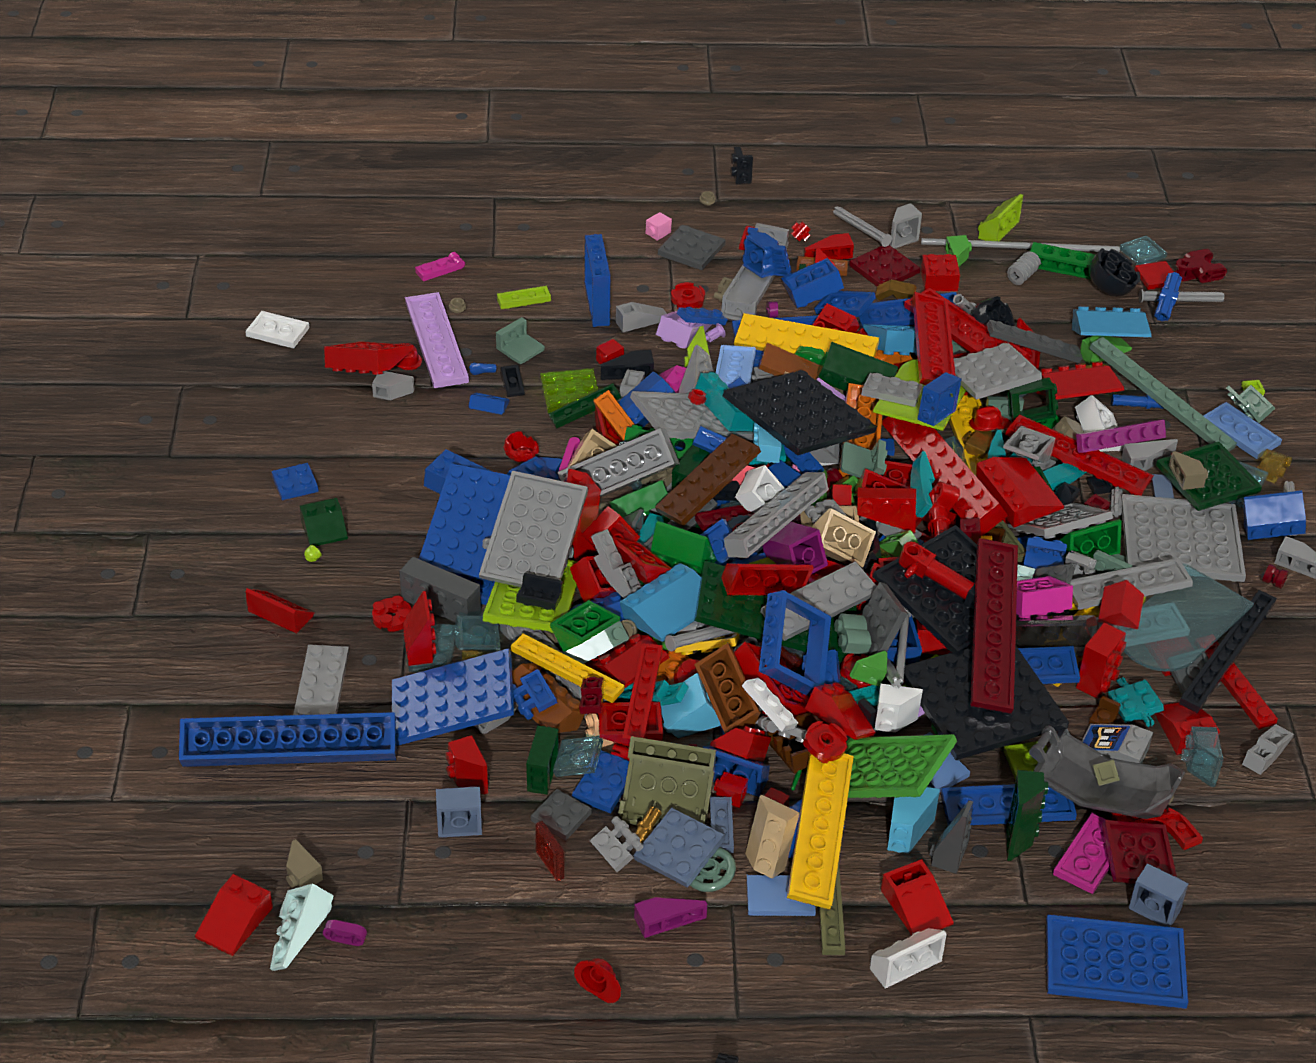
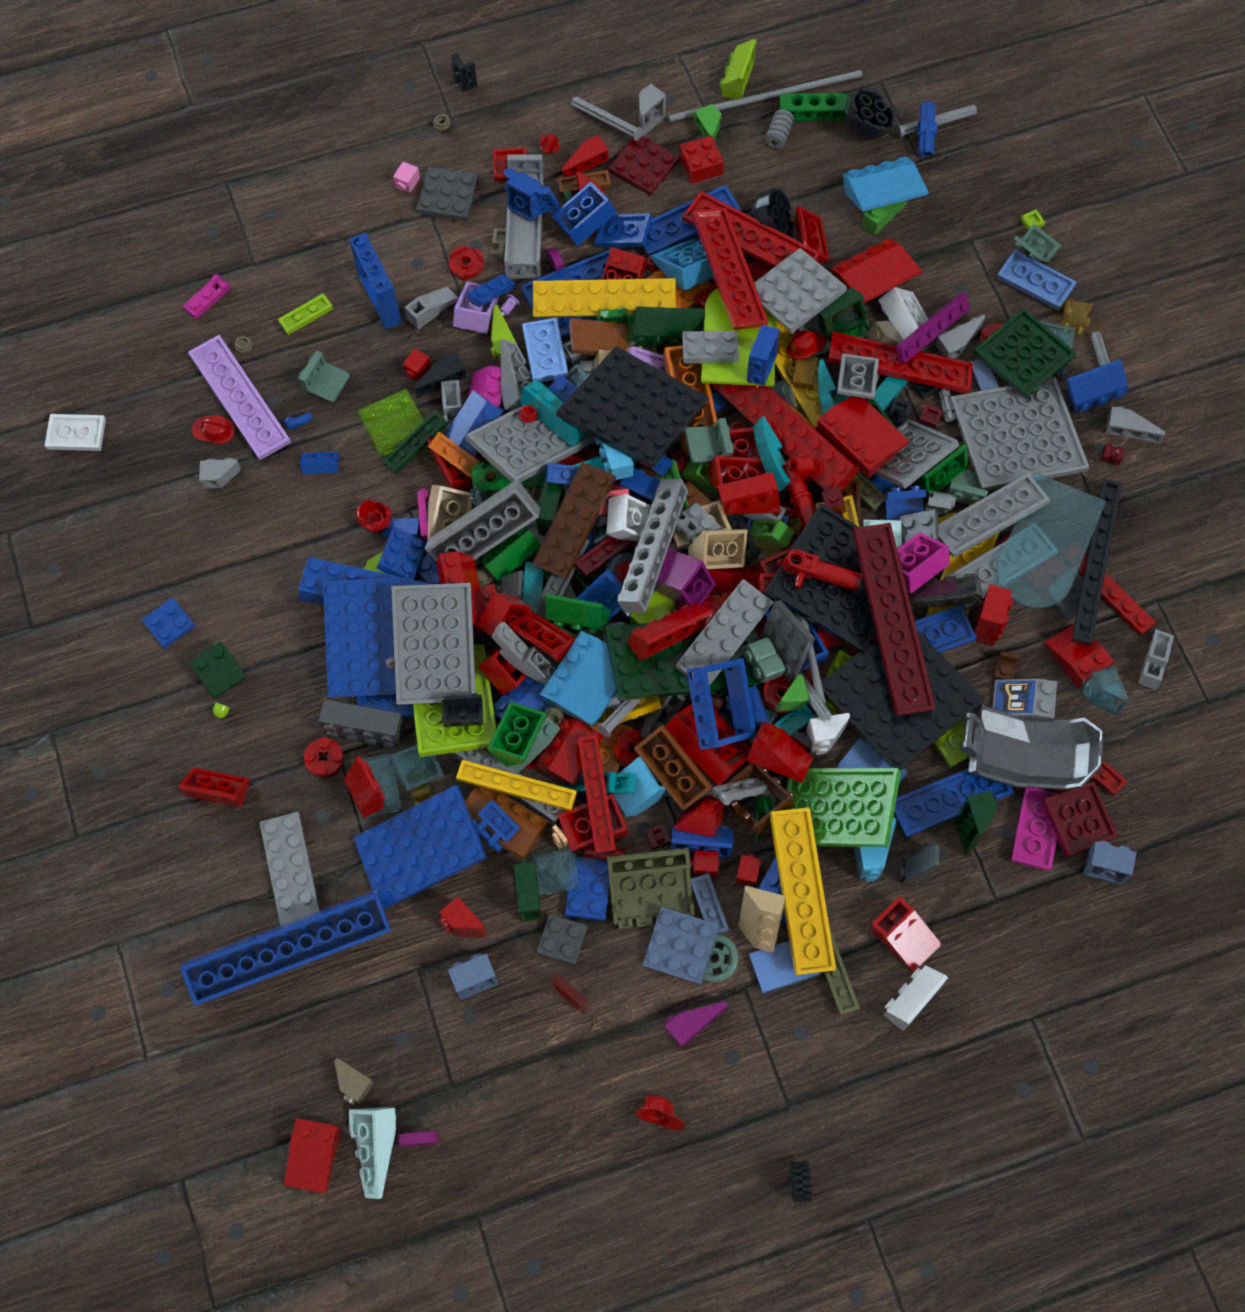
camera: 15 degrees left, 25 degrees up
(365, 356) = (180, 445): red slope -> none
(512, 381) = (333, 428): black slope -> none
(592, 695) = (552, 815): dark red slope -> none
(611, 848) = (622, 965): light grey plate -> none
(646, 826) = (643, 933): pearl gold pin -> none
(770, 704) = (719, 779): white plate -> none
(821, 750) = (793, 802): red plate -> none
(842, 494) = (699, 490): red brick -> none
(897, 288) = (669, 194): pearl gold slope -> none
(964, 304) = (743, 204): light grey pin -> none
(1034, 341) = (819, 231): dark grey plate -> none
(1106, 772) = (1028, 740): olive tile -> none
(1116, 961) = (1089, 939): blue plate -> none
(1121, 605) = (993, 548): red slope -> none
(1134, 401) = (940, 270): blue pin -> none
(1137, 701) = (1029, 643): teal plate -> none
(1143, 250) = (884, 68): clear light blue tile -> none
(1153, 274) = (905, 97): red tile -> none
(1161, 394) = (955, 261): sand green plate -> none
(1188, 471) = (1008, 359): dark tan slope -> none
(1198, 266) = (942, 78): dark red piece -> none

